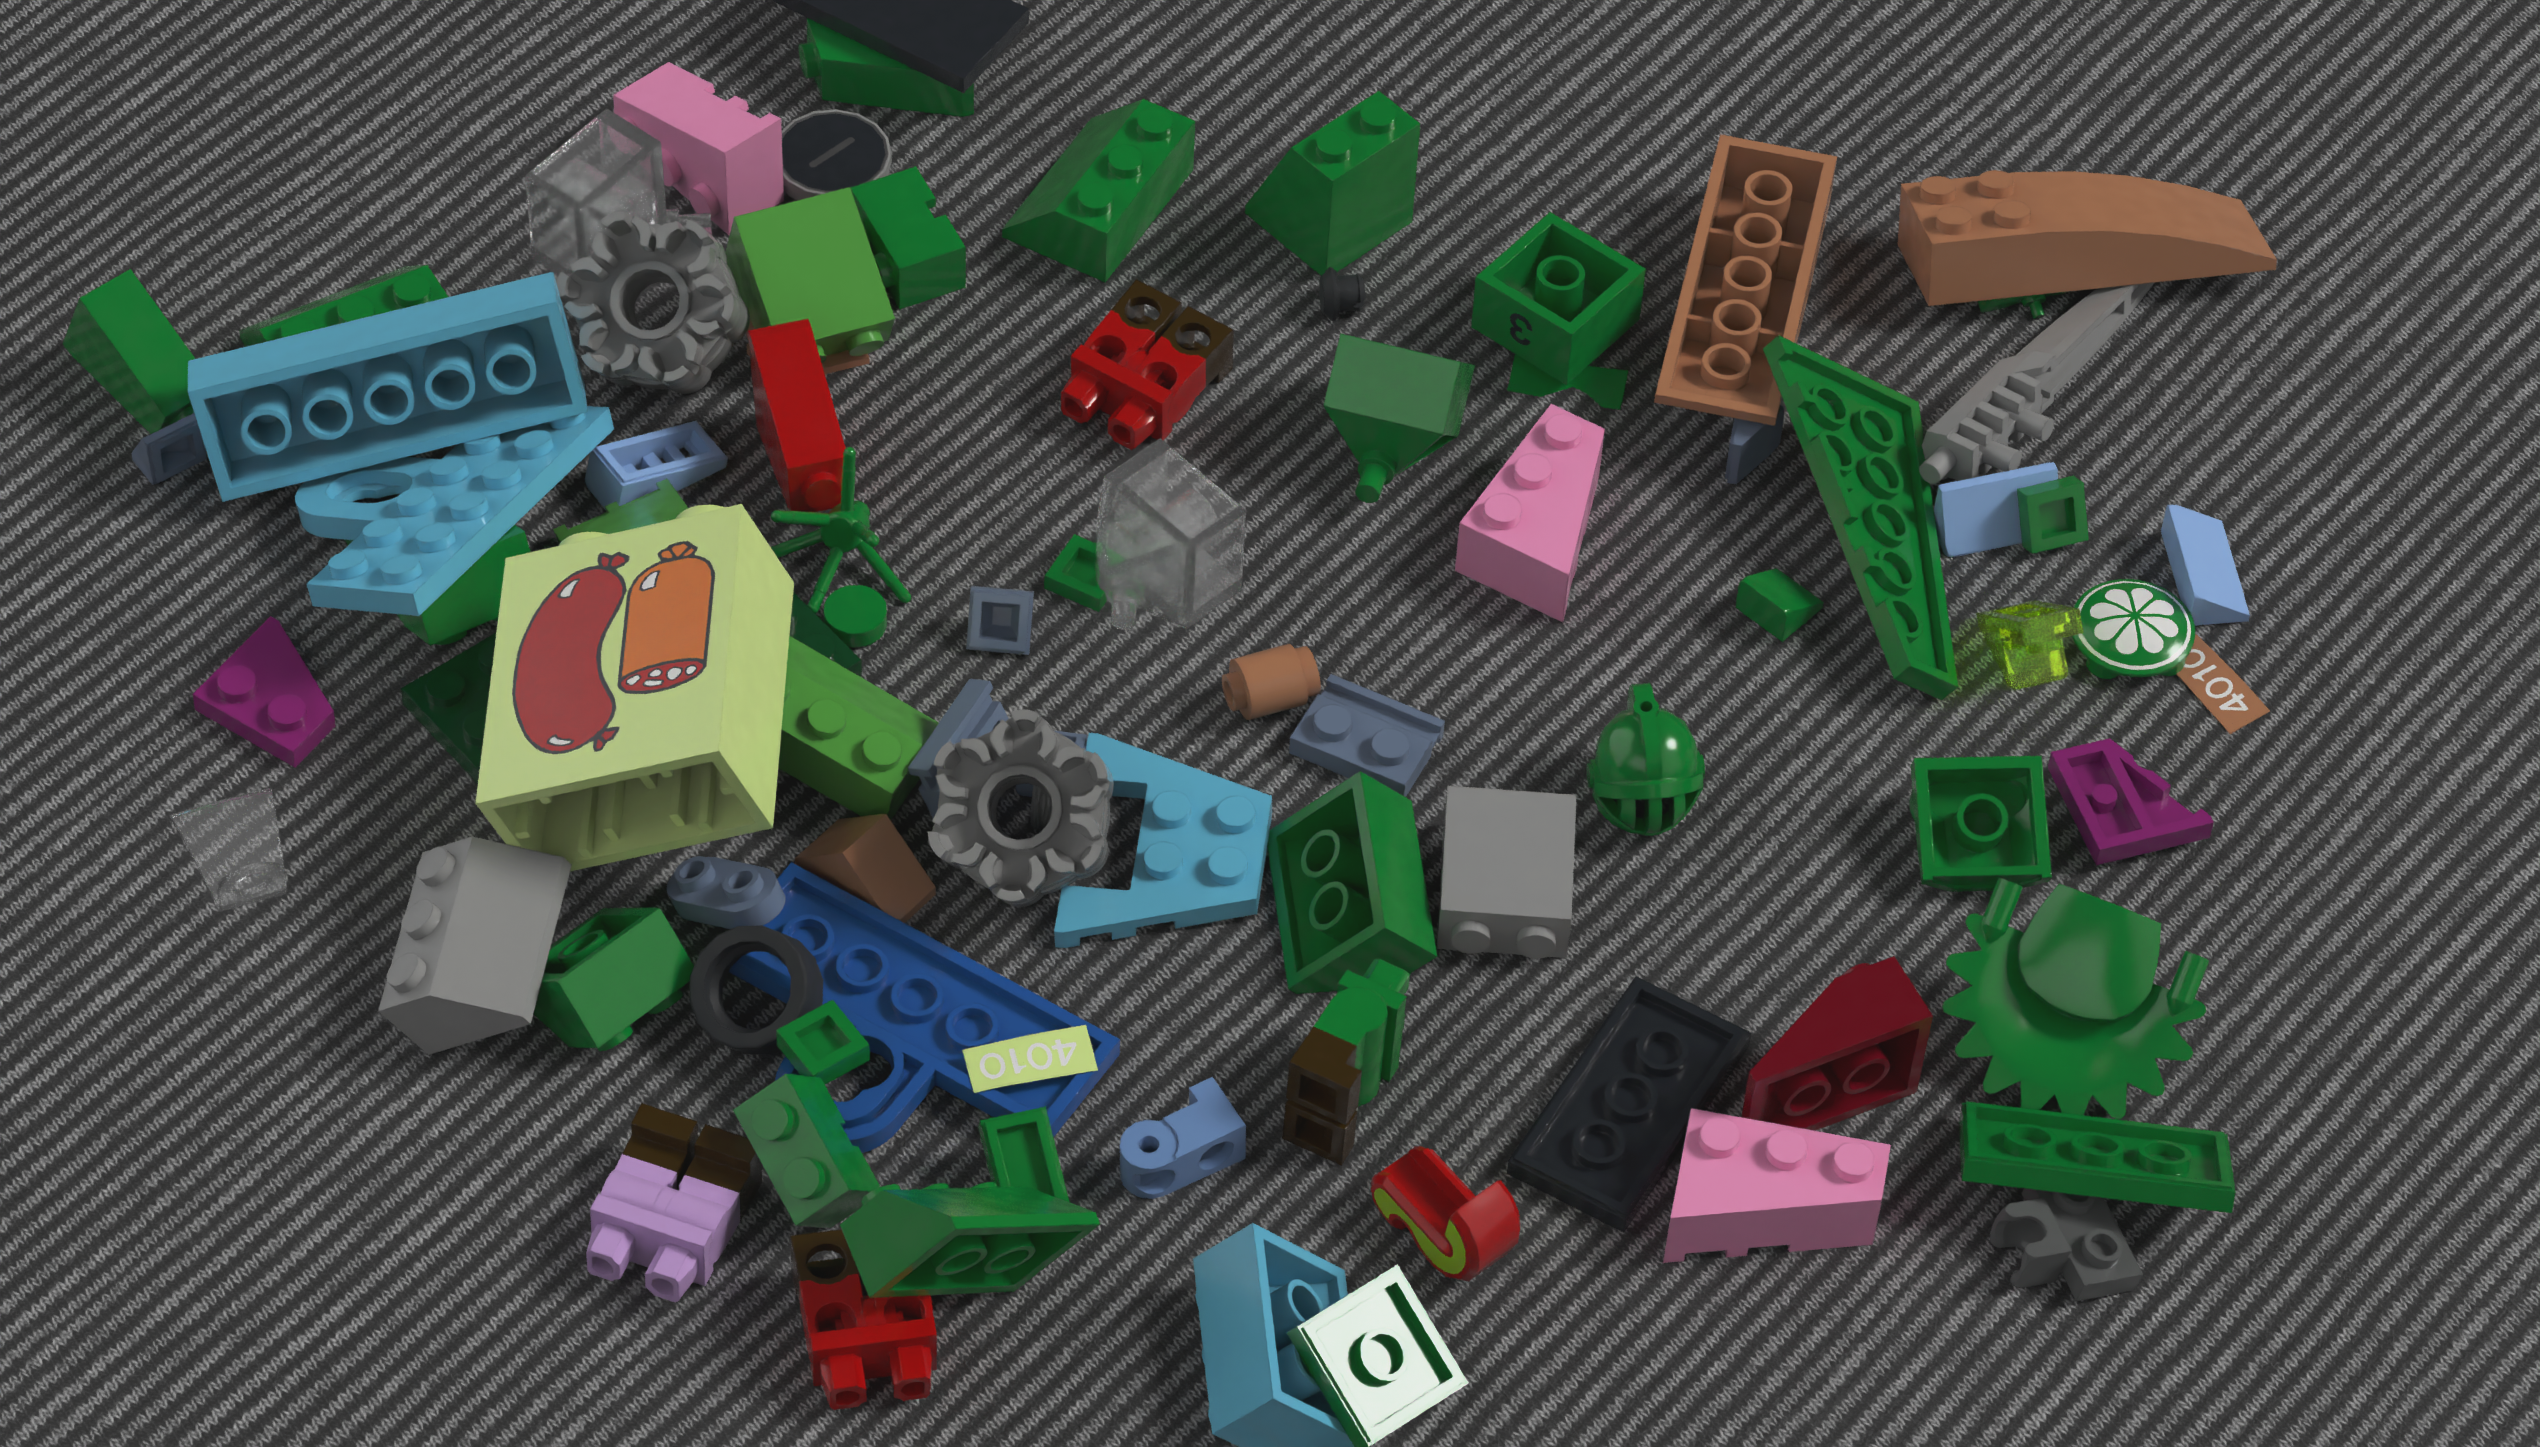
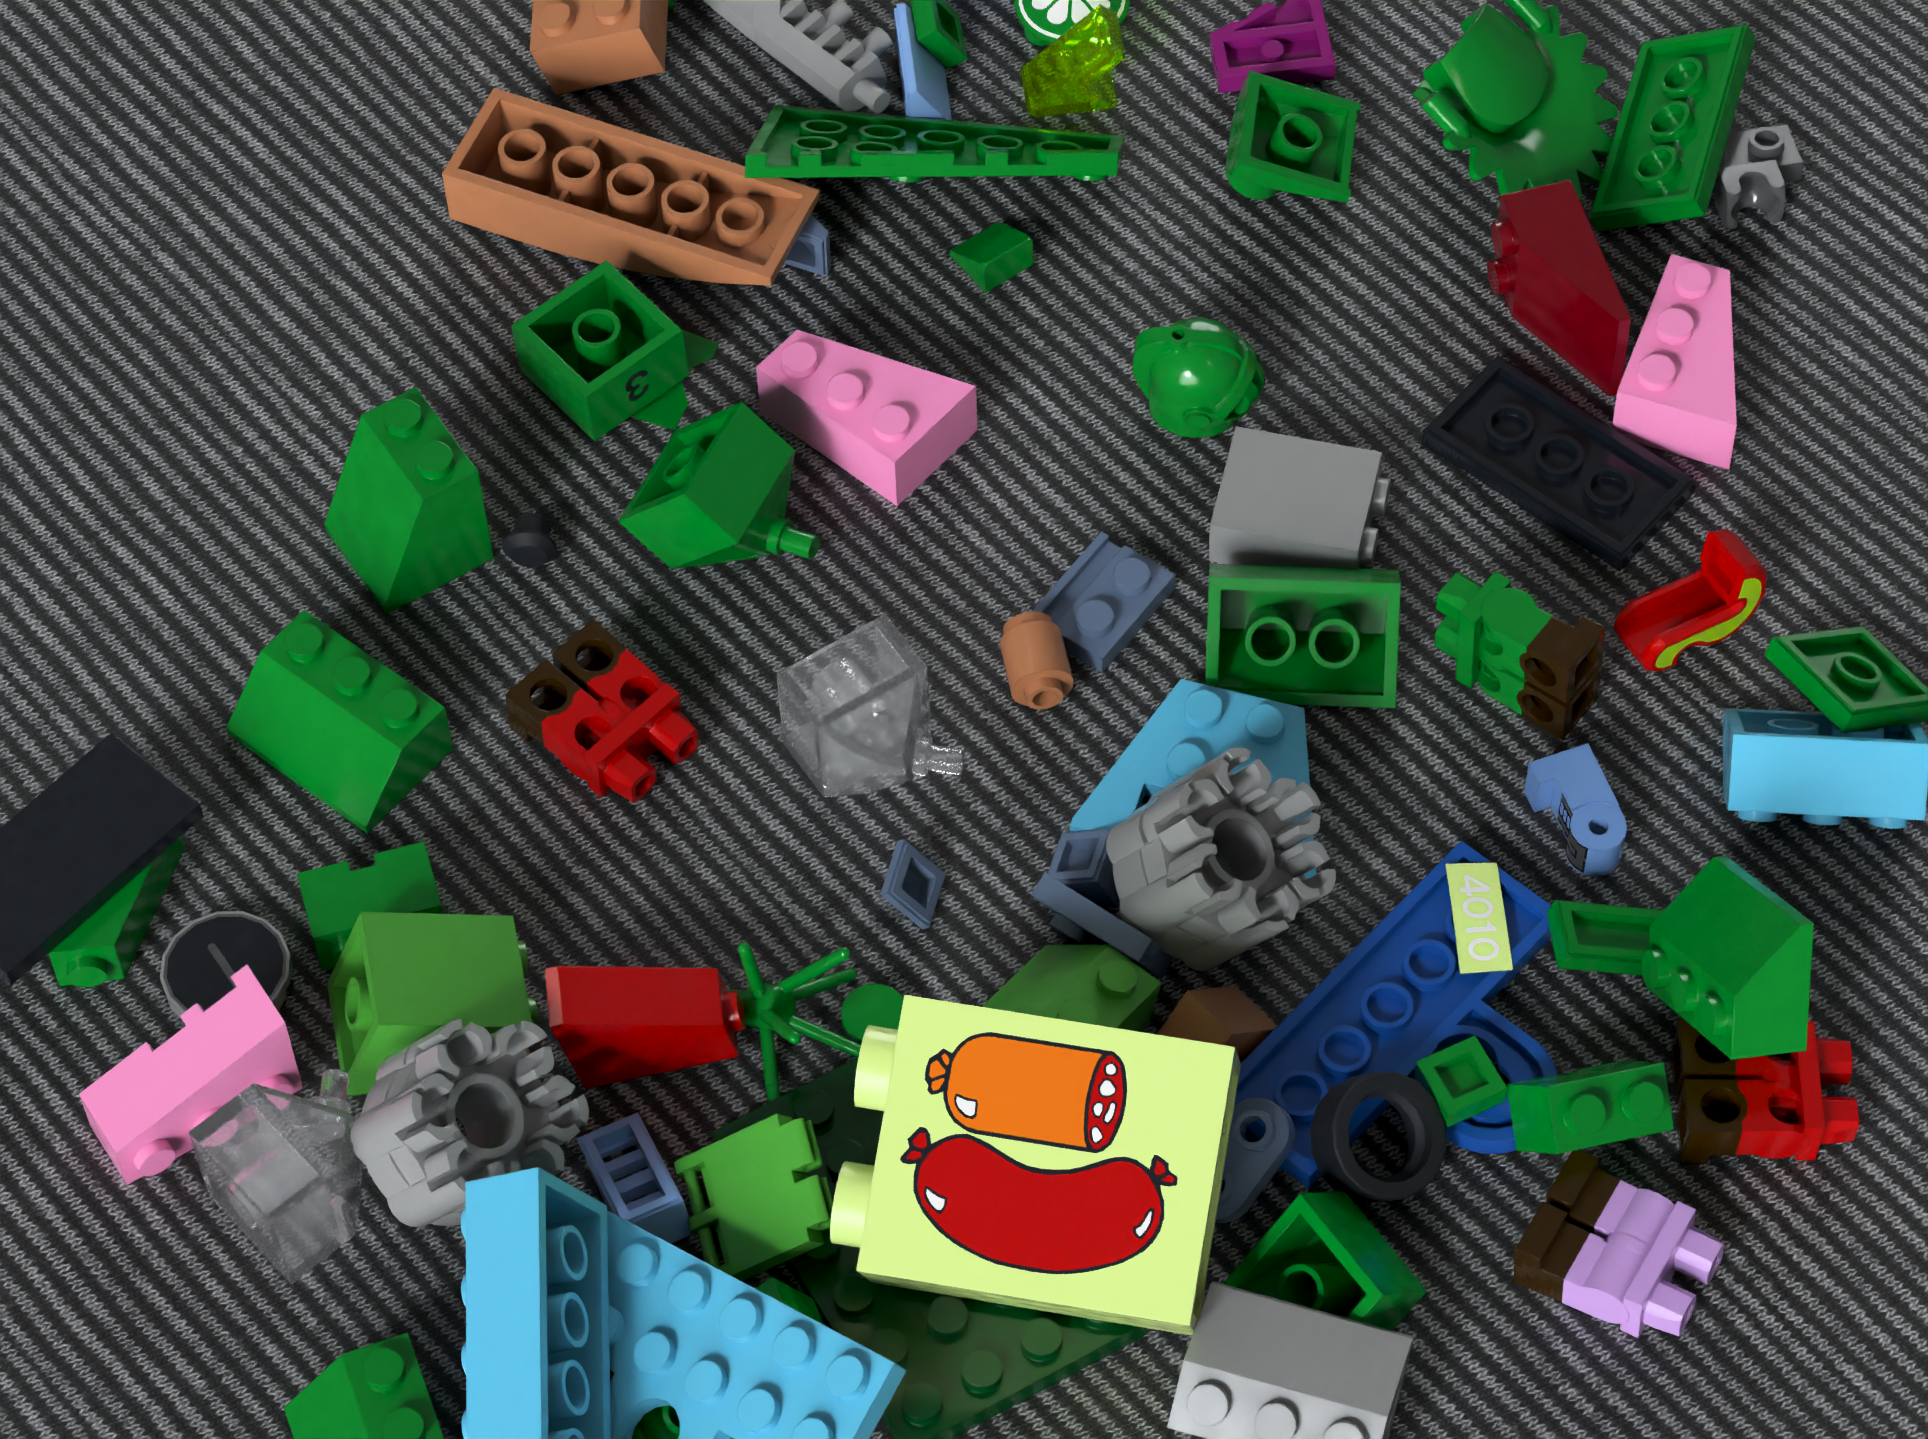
camera: 75 degrees left, 5 degrees up
(1075, 575) = (850, 817): green tile -> none

